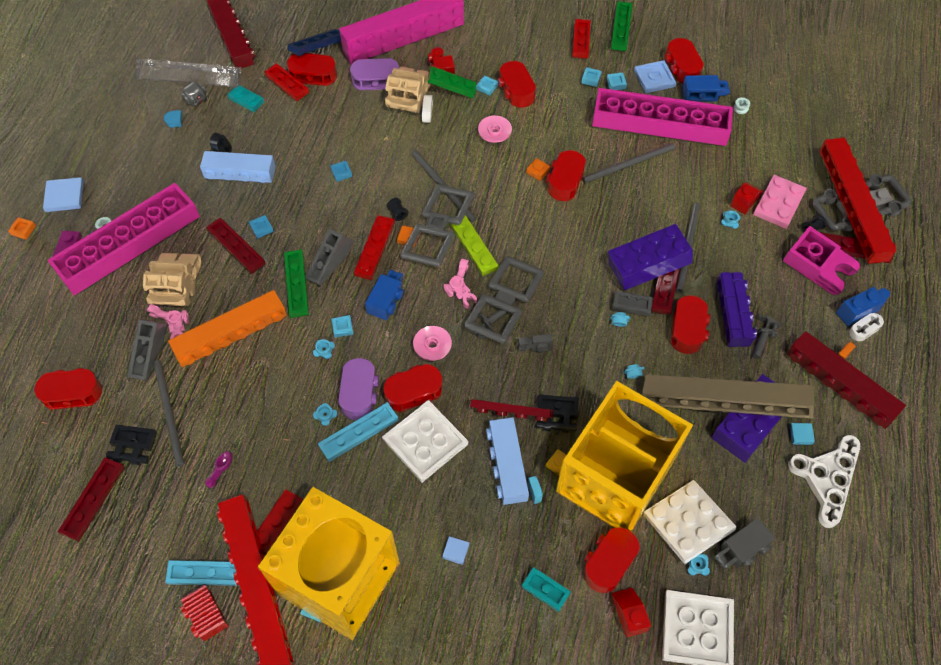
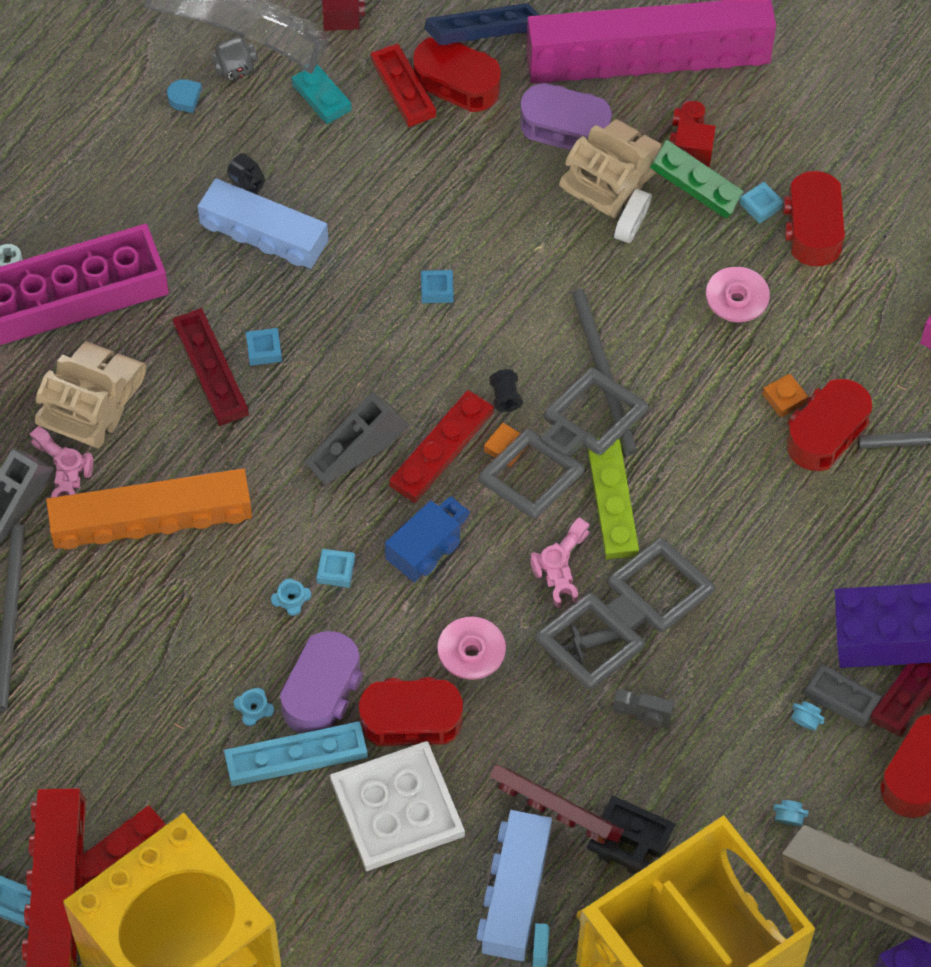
camera: 20 degrees right, 0 degrees up
(221, 464) = (65, 730): magenta piece -> none
(296, 283) = (286, 468): green plate -> none

